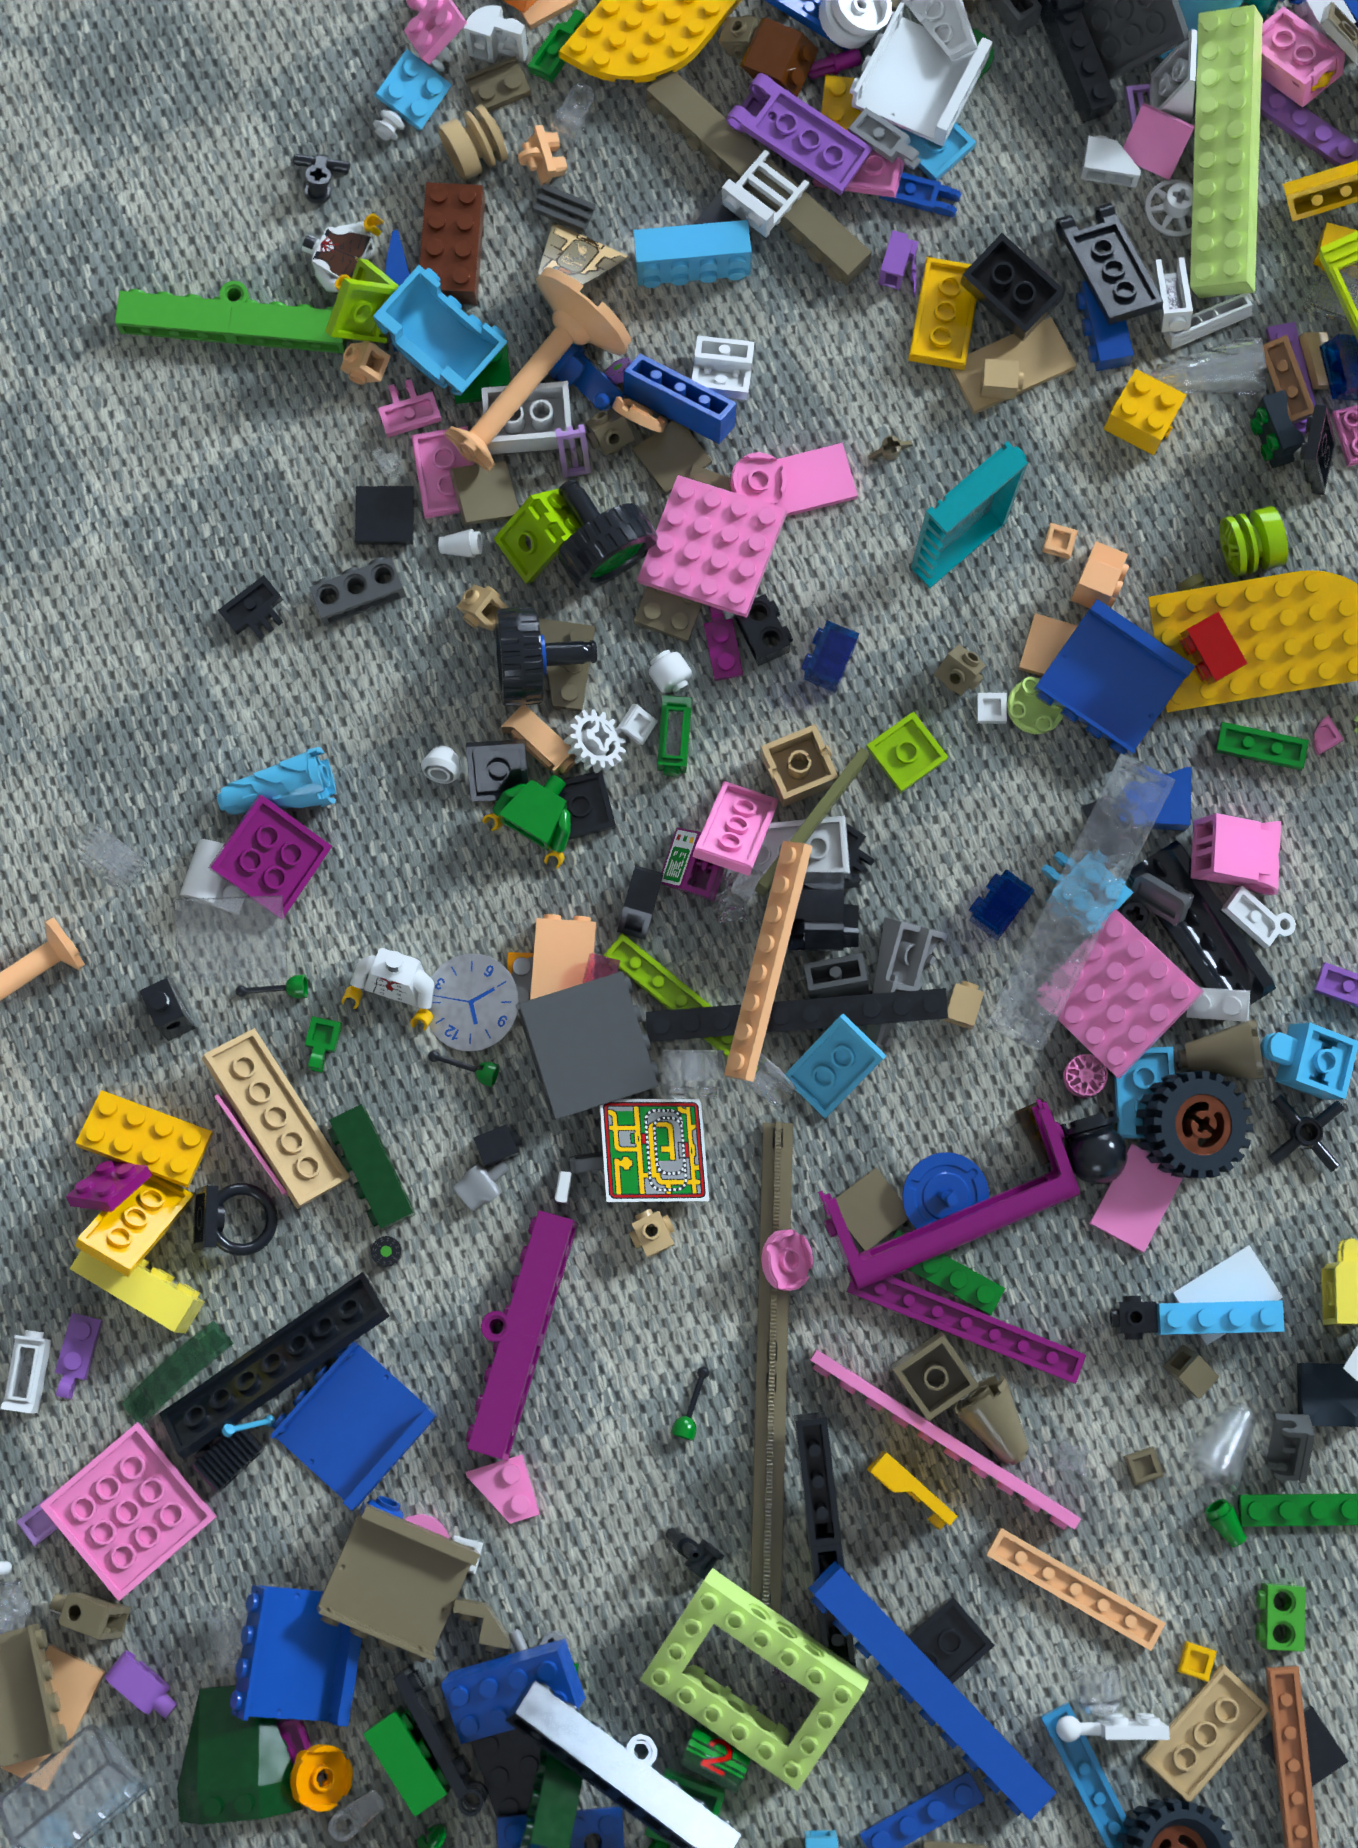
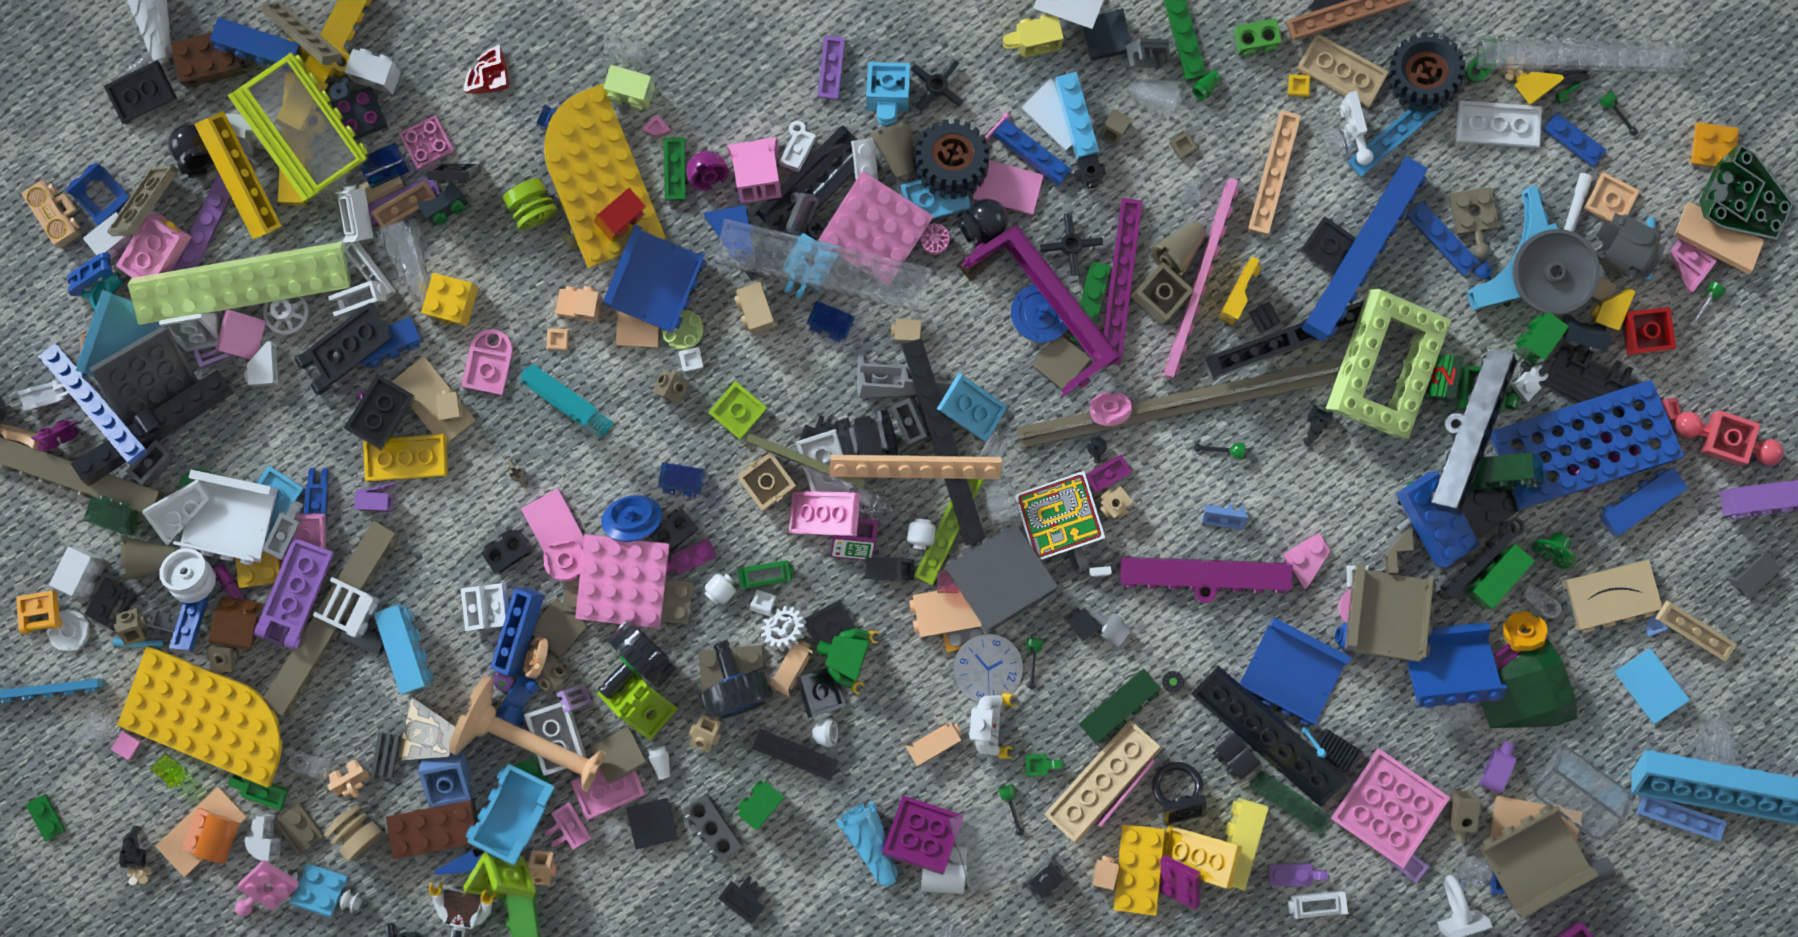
camera: 100 degrees left, 5 degrees up
(152, 1090) = (1105, 873): none -> light nougat brick
(260, 1311) = (1235, 755): none -> black brick
(369, 656) = (761, 804): none -> green piece
(389, 904) = (934, 743): none -> light nougat window
(424, 719) = (795, 754): none -> black plate
(510, 270) = (445, 780): none -> medium blue slope
(596, 1379) = (1225, 517): none -> medium blue plate
(677, 955) = (921, 533): none -> white head
(697, 1234) = (1108, 473): none -> magenta plate
(737, 1228) = (1097, 447): none -> black piece
(784, 412) = (509, 556): none -> black brick
(793, 577) = (631, 518): none -> blue piece
(867, 1518) = (1264, 317): none -> black piece
(1041, 804) = (756, 310): none -> tan brick
(1047, 1266) = (1072, 253): none -> black bar
(1050, 443) = (487, 364): none -> bright pink tile
(1179, 1244) = (1032, 152): none -> blue plate
(1240, 1221) = (1005, 116): none -> bright pink hinge
(1251, 785) = (706, 169): none -> magenta cylinder
(1288, 314) = (355, 214): none -> white window

